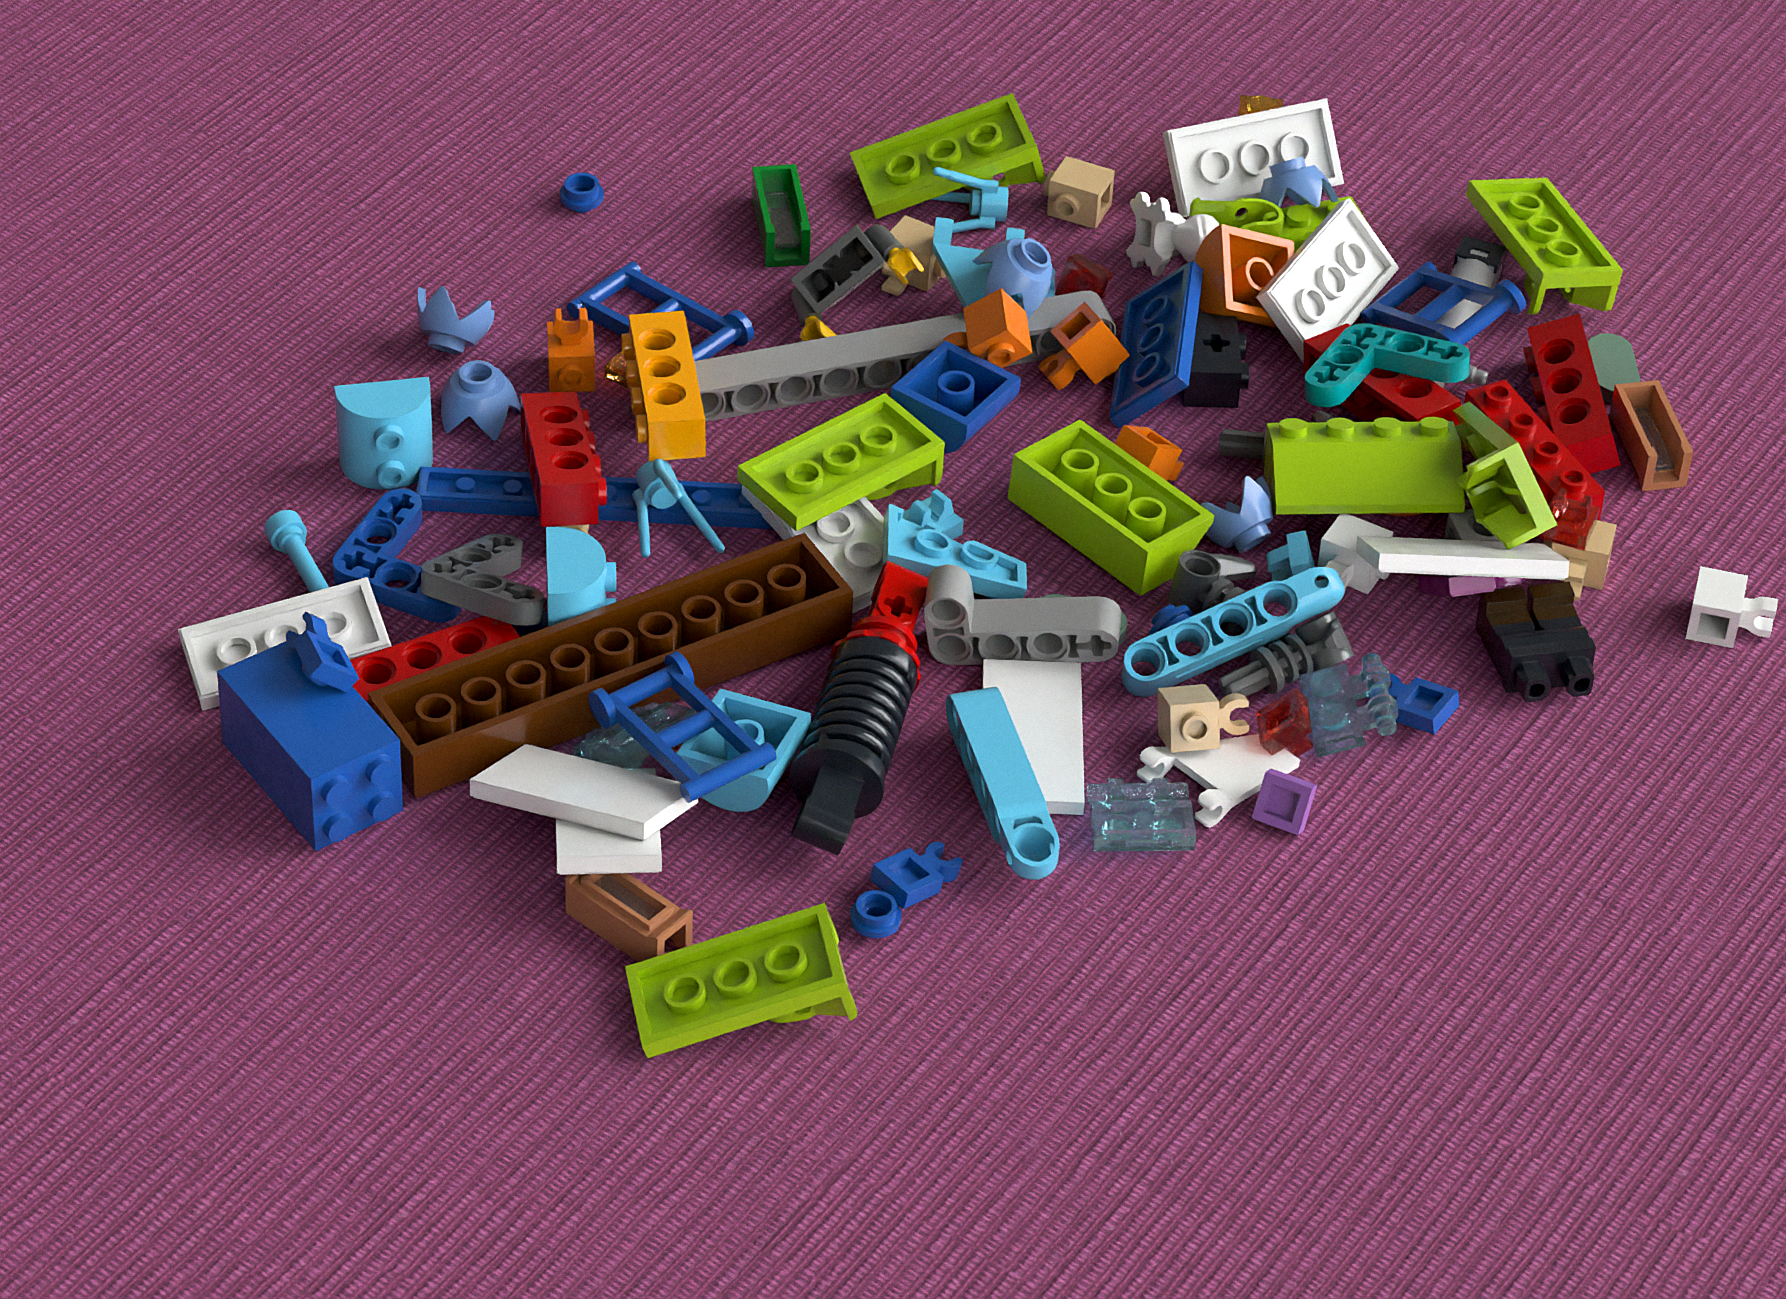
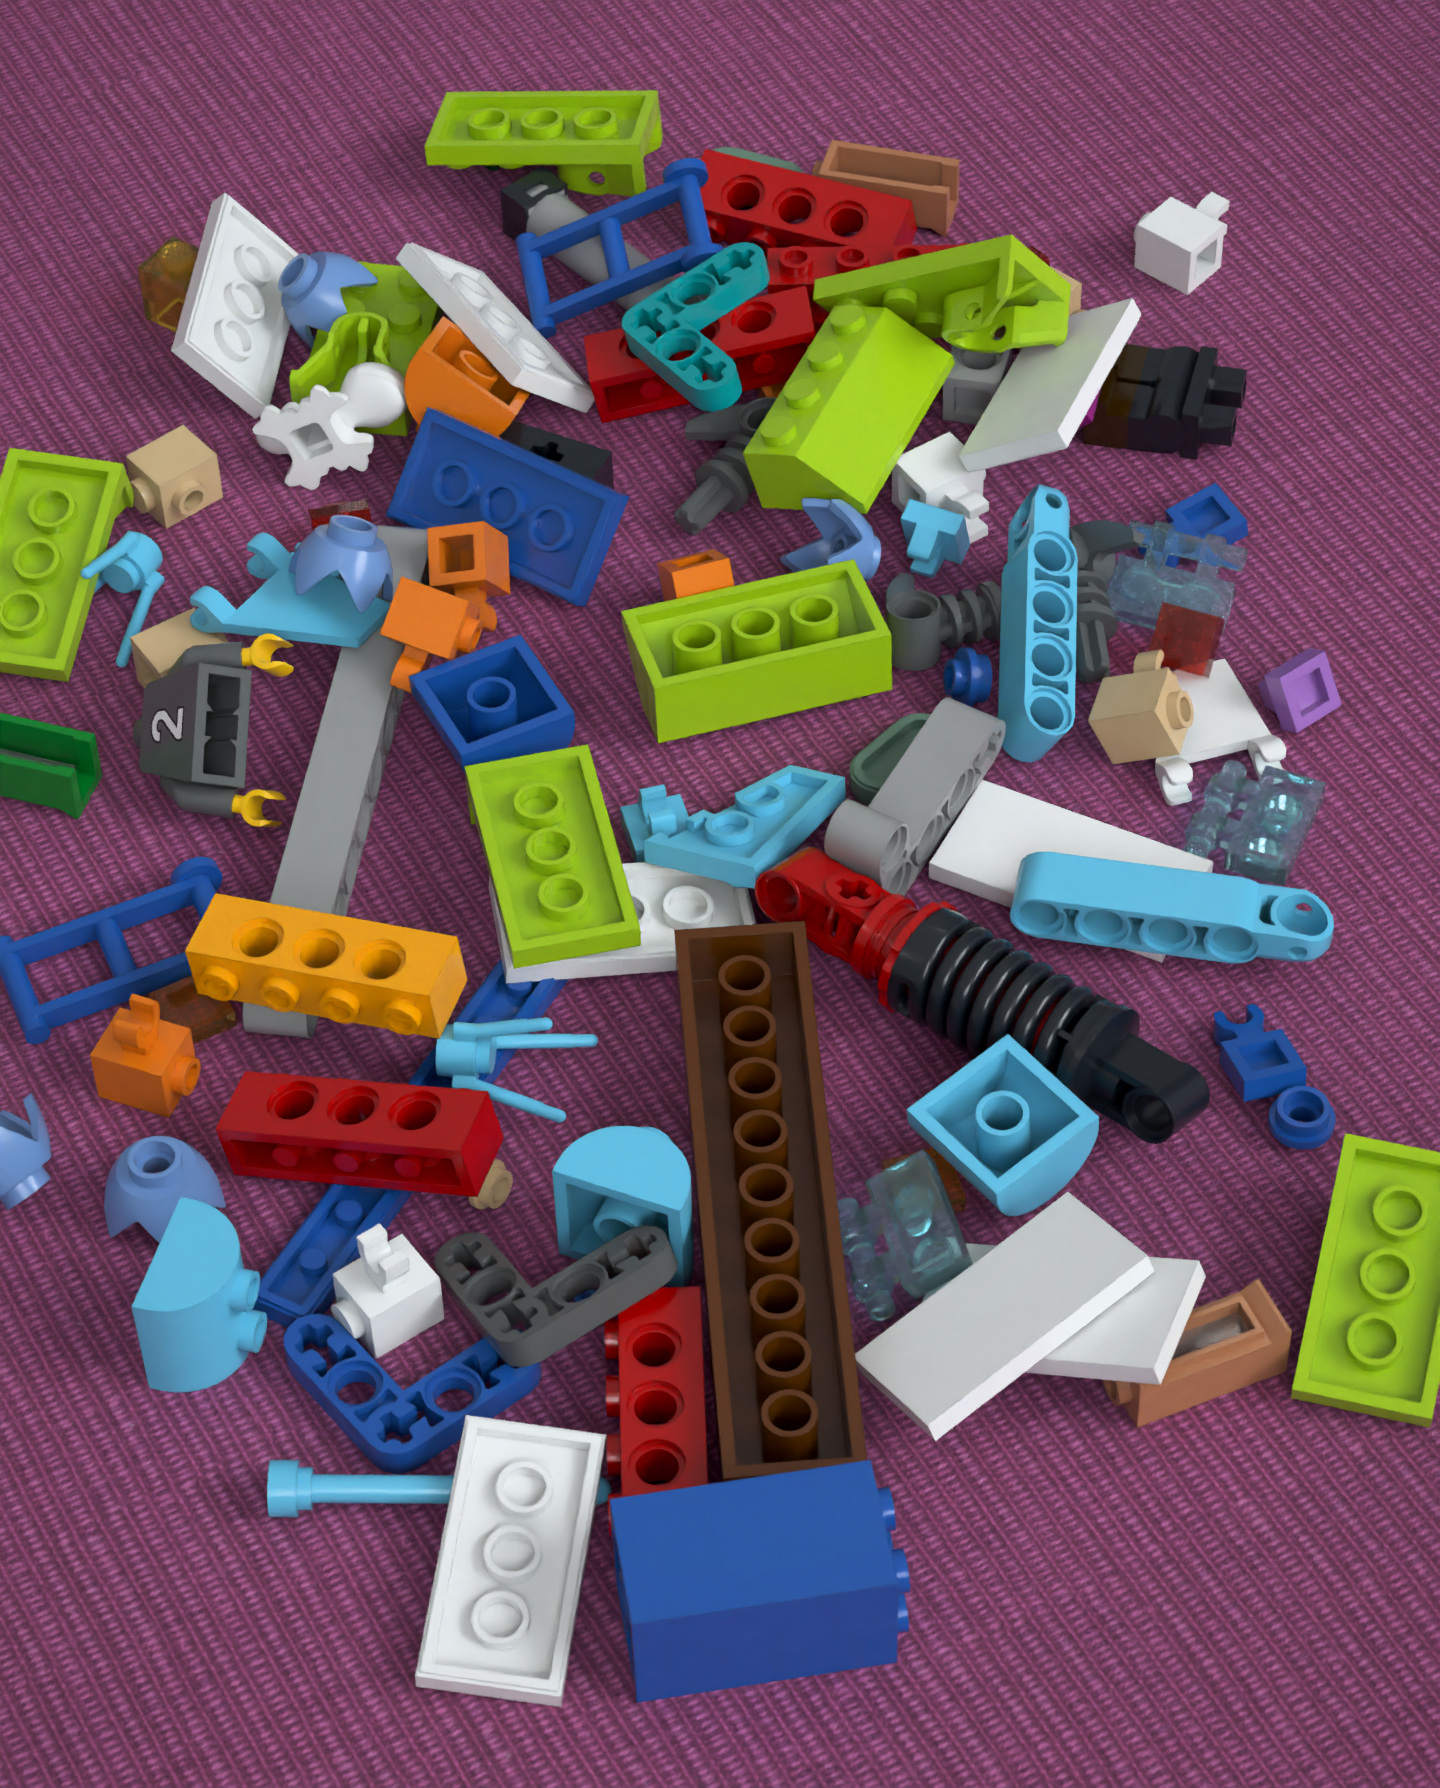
camera: 60 degrees left, 5 degrees up
(322, 659) = (707, 1485): blue plate -> none
(450, 515) = (386, 1293): none -> white brick
(678, 675) = (884, 1232): blue piece -> none

